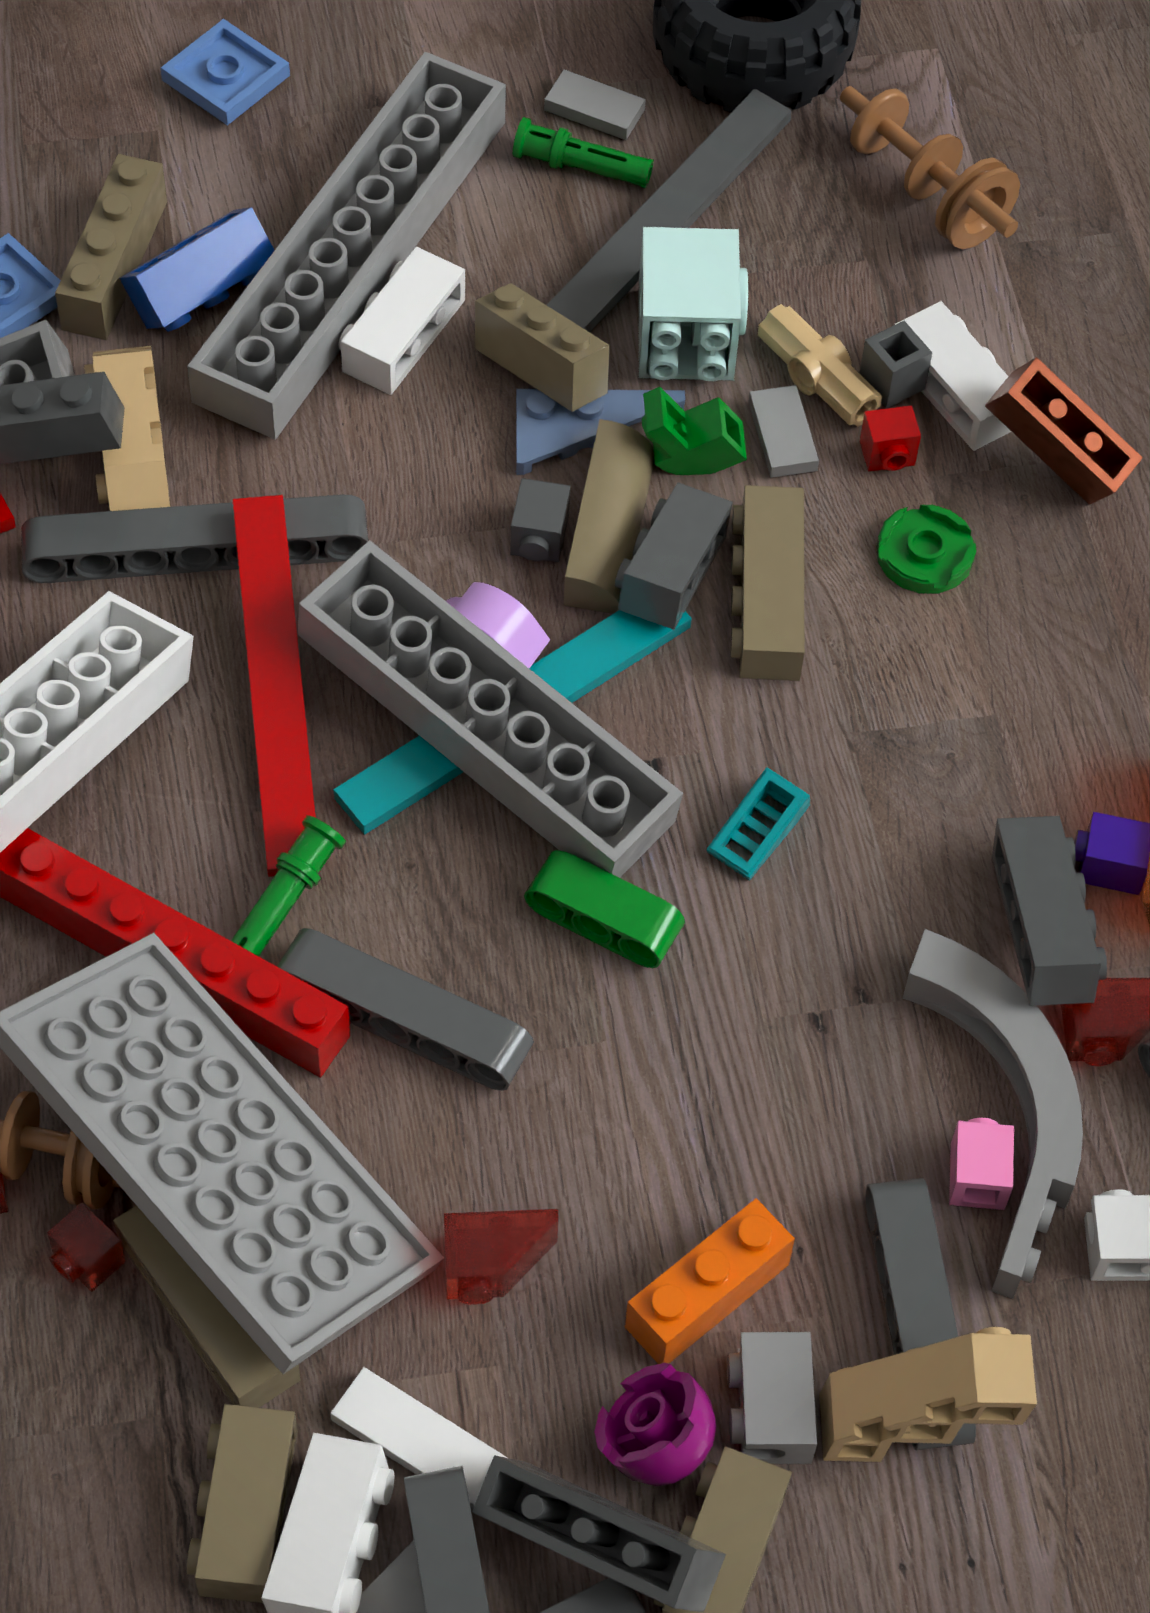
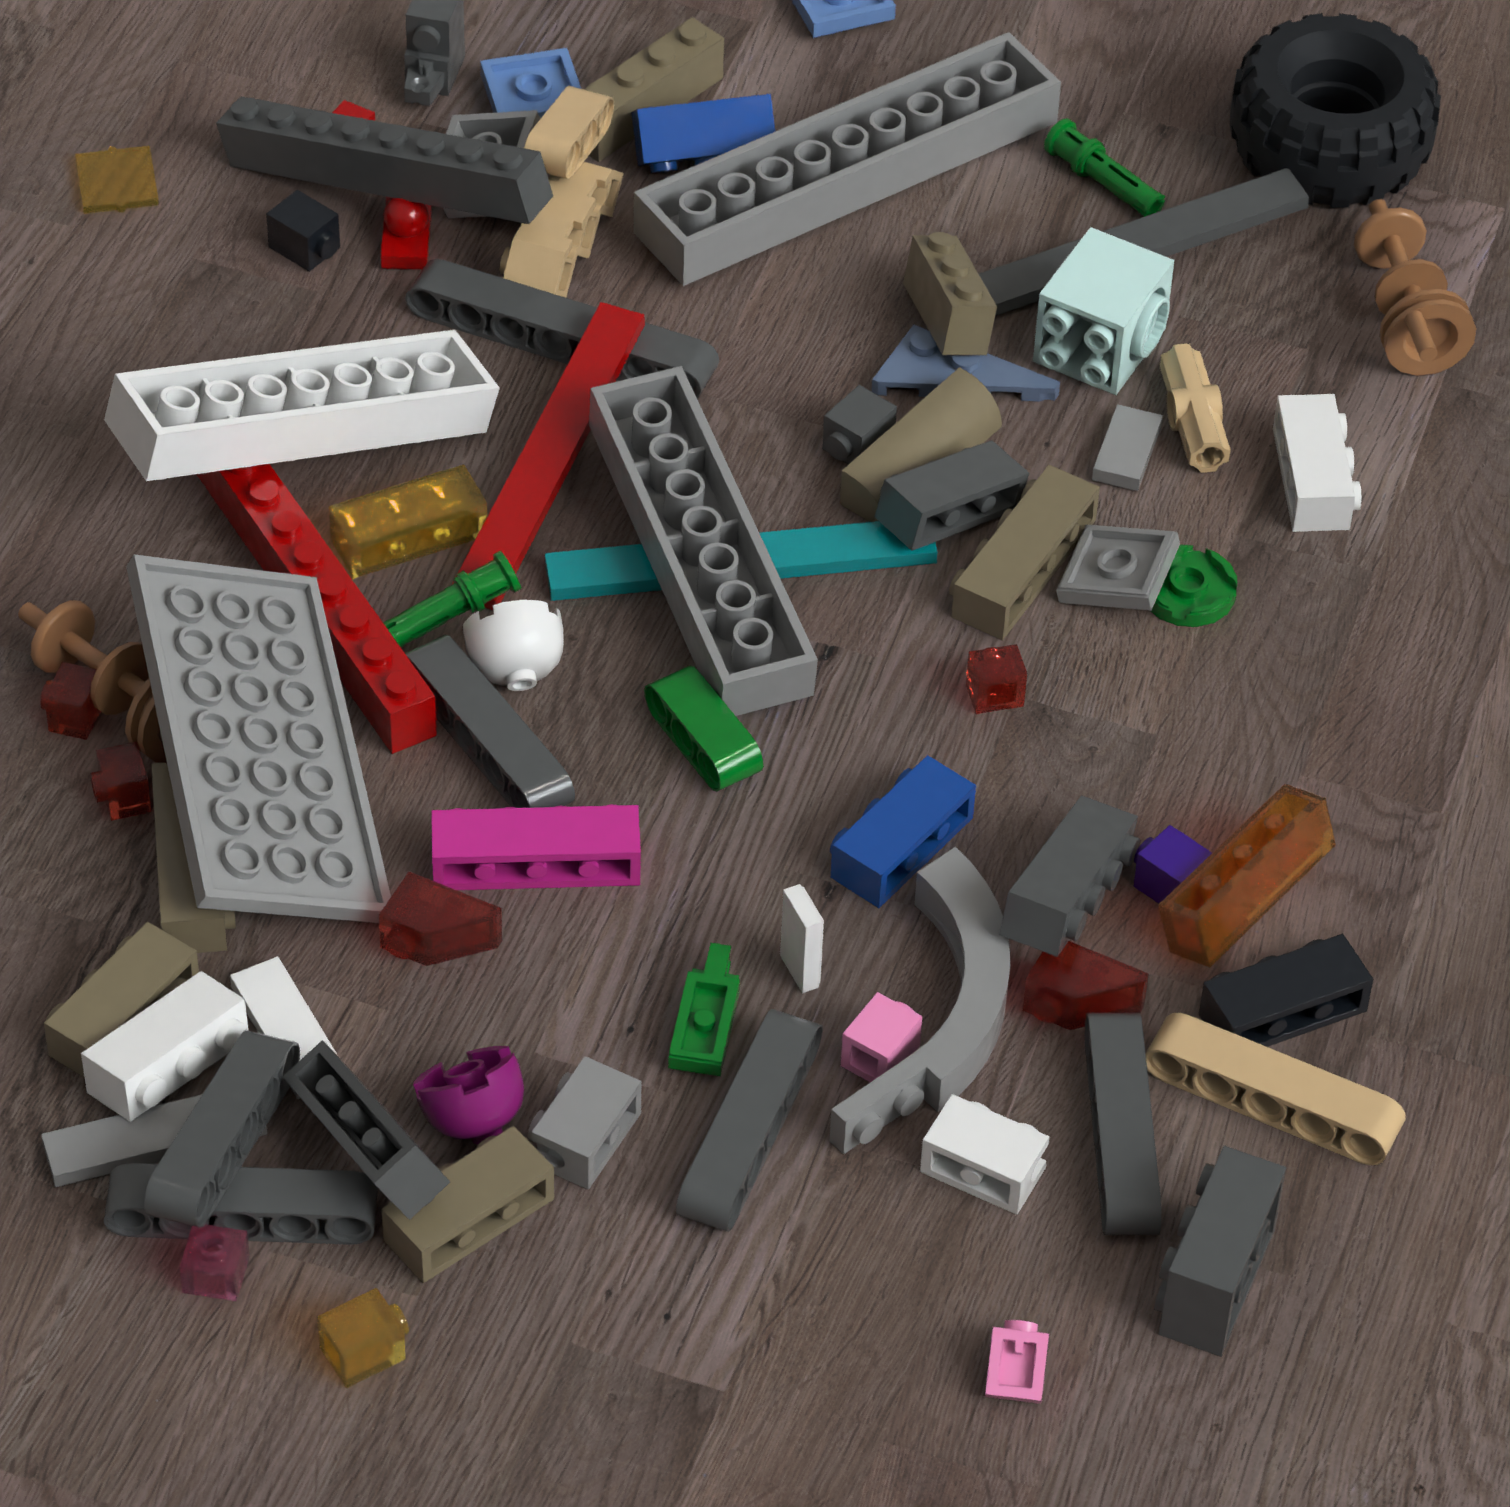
camera: 30 degrees right, 10 degrees down
(90, 326) = (571, 130): none -> tan beam
(181, 816) = (407, 521): none -> clear yellow brick
(380, 908) = (515, 643): none -> white cylinder
(402, 320) = (851, 236): white brick -> none
(503, 620) = (763, 485): lavender brick -> none
(533, 1117) = (536, 847): none -> dark pink brick
(594, 104) = (1148, 137): light grey tile -> none
(692, 440) = (1033, 420): green brick -> none
(709, 1282) = (591, 1018): orange brick -> none
(782, 791) = (890, 705): teal slope -> none
(805, 1209) = (705, 1015): none -> green hinge
(831, 727) = (996, 678): none -> clear red plate
(852, 930) = (902, 831): none -> blue brick
(854, 1097) = (801, 938): none -> white tile
(860, 560) = (1118, 567): none -> light grey tile
(890, 438) = (1214, 486): red plate -> none
(896, 363) = (1258, 428): dark grey brick -> none
(927, 1394) = (692, 1152): tan brick -> none
(1063, 431) = (1363, 531): copper brick -> none

